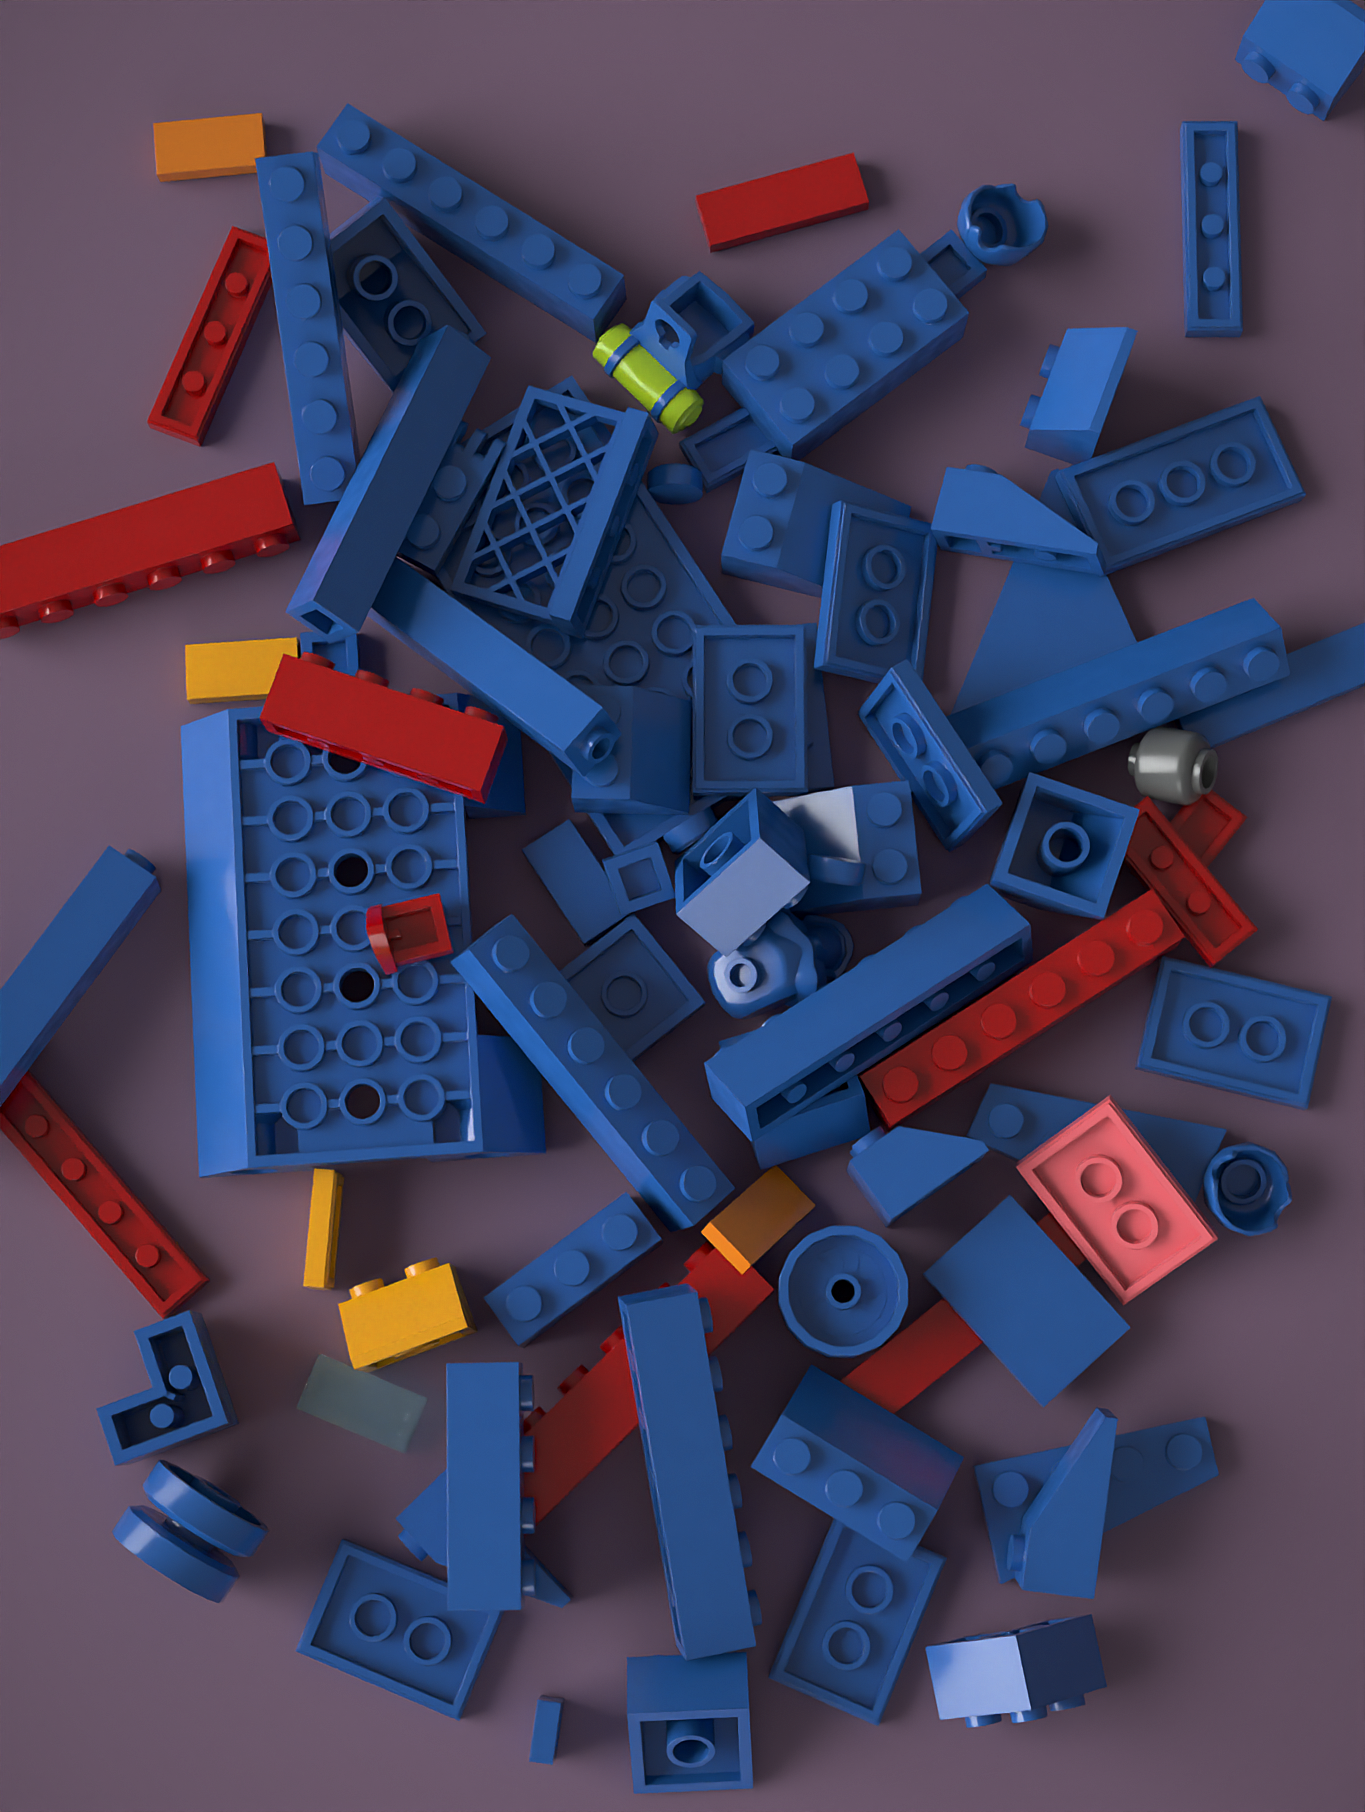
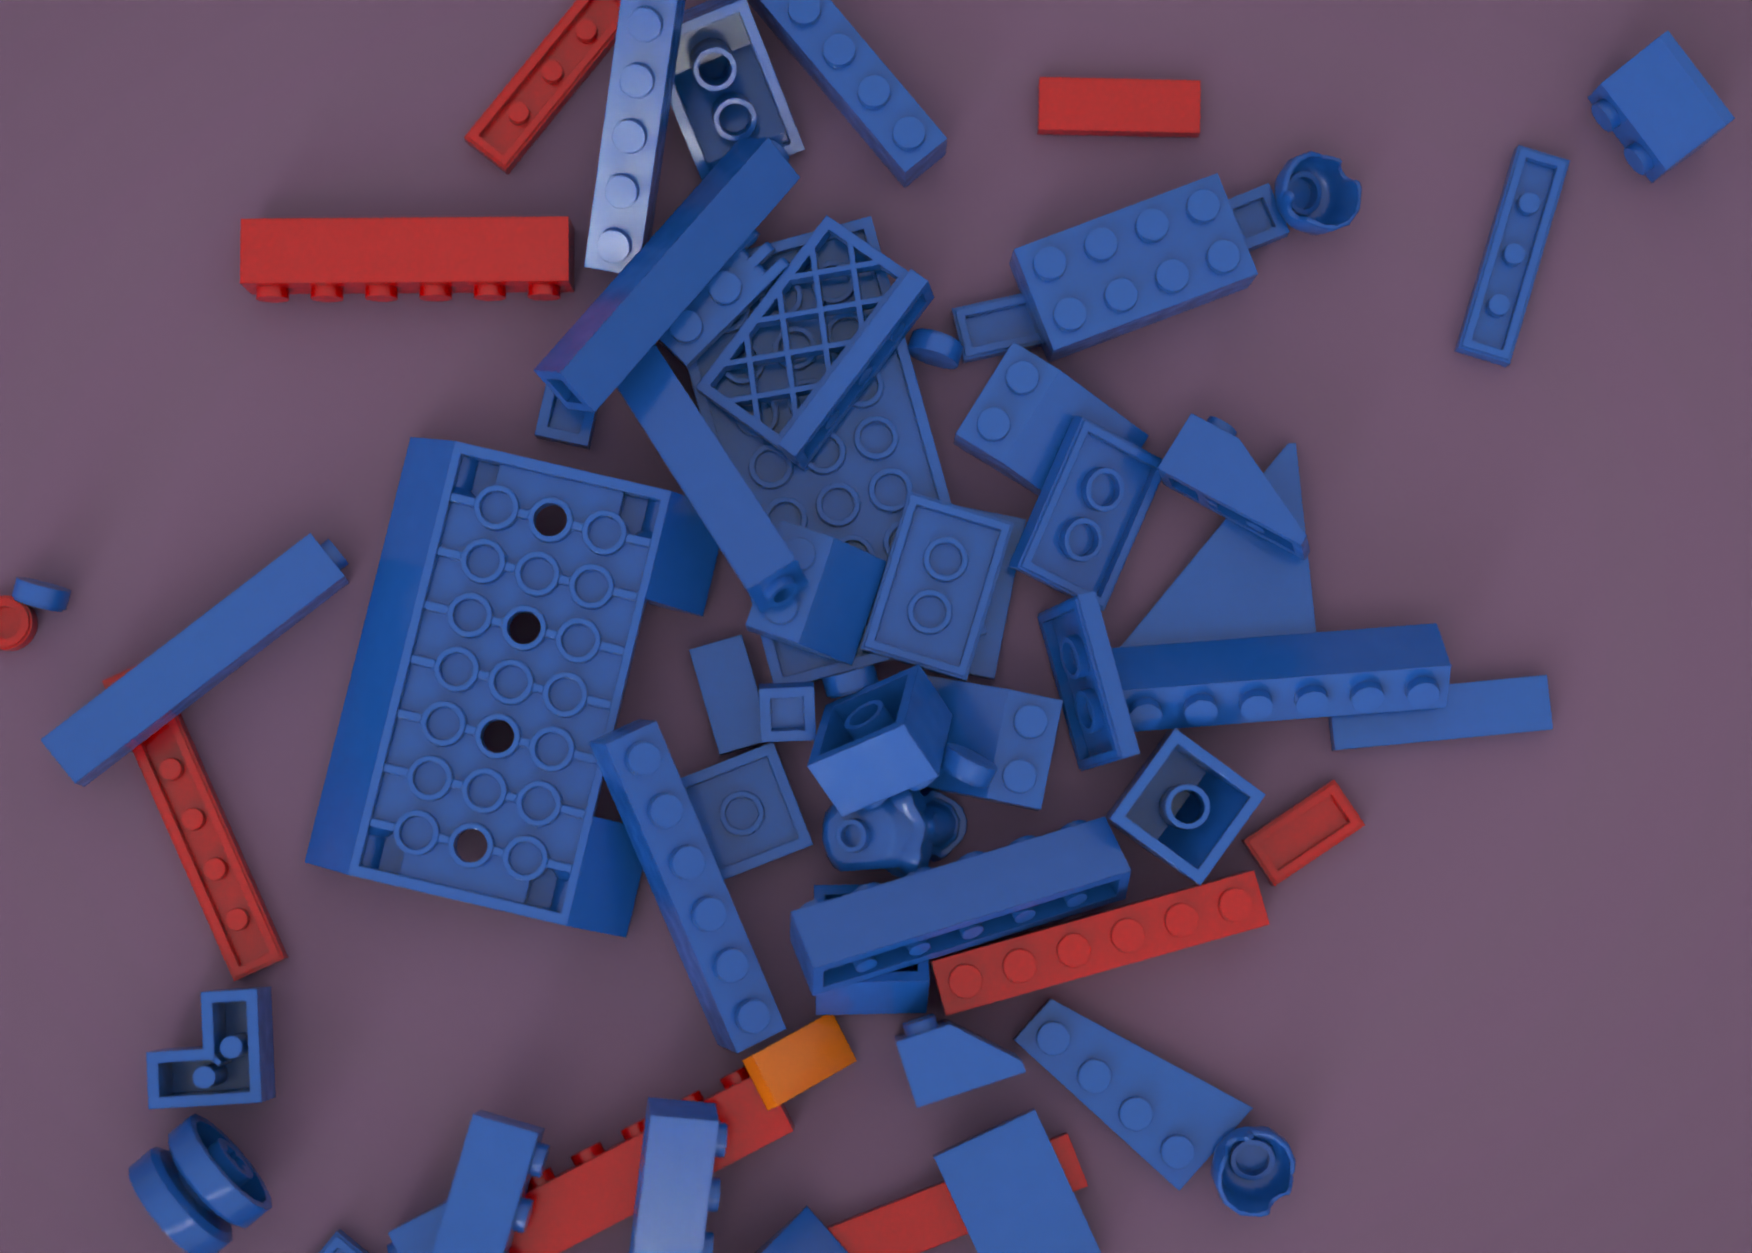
camera: 10 degrees right, 5 degrees up
(234, 669) = (484, 401): light orange tile -> none
(323, 1229) = (402, 946): light orange tile -> none
(362, 1403) = (391, 1113): clear light blue tile -> none
(384, 726) = (592, 505): red brick -> none
(405, 1317) = (452, 1050): light orange slope -> none
(408, 932) = (557, 703): red tile -> none
(573, 1270) = (617, 1055): blue brick -> none
(675, 348) = (976, 220): blue piece -> none
(833, 1326) = (882, 1172): blue wheel -> none
(1078, 392) = (1336, 379): blue slope -> none
(1117, 1200) = (1131, 1144): coral tile -> none
(1173, 765) = (1311, 758): dark grey head -> none
(1181, 484) = (1404, 493): blue tile -> none
(1185, 886) = (1286, 873): red tile -> none
(1233, 1033) = (1288, 1019): blue tile -> none

